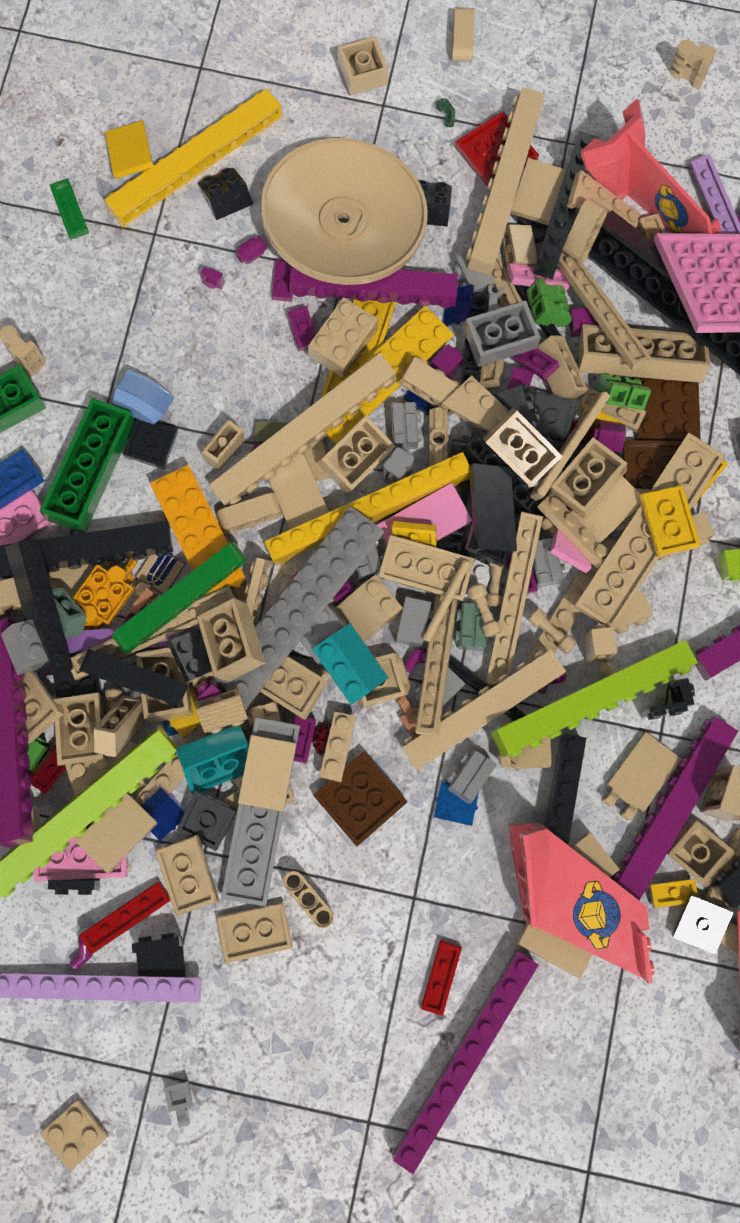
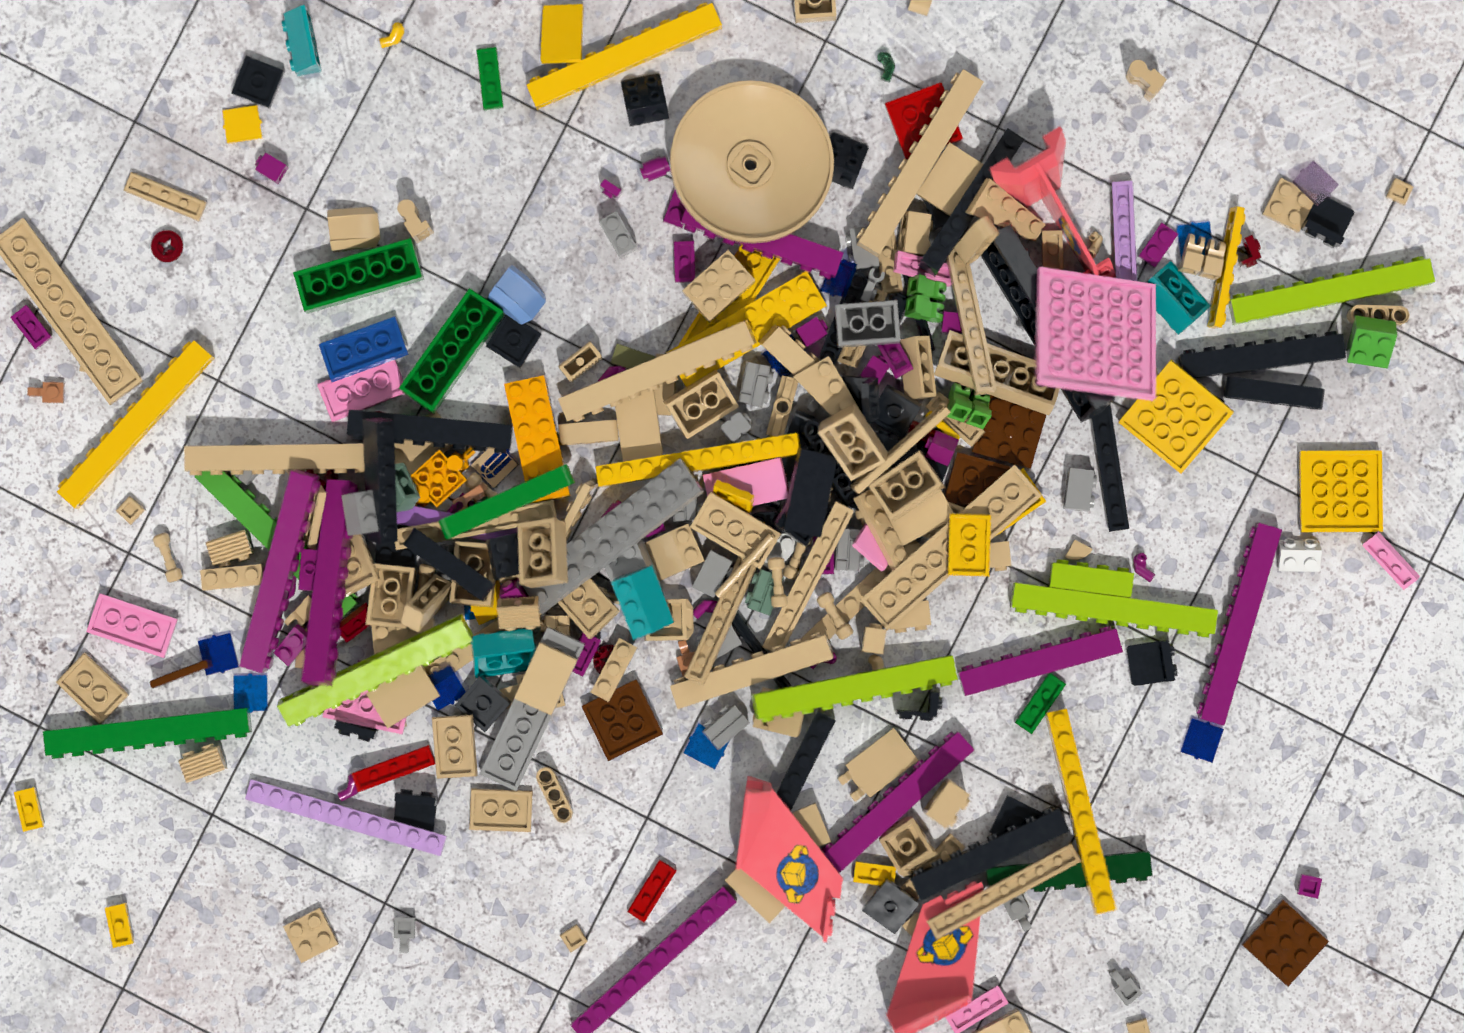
camera: 20 degrees right, 10 degrees up
(230, 317) = (618, 235): none -> light grey brick
(369, 1055) = (573, 938): none -> tan tile

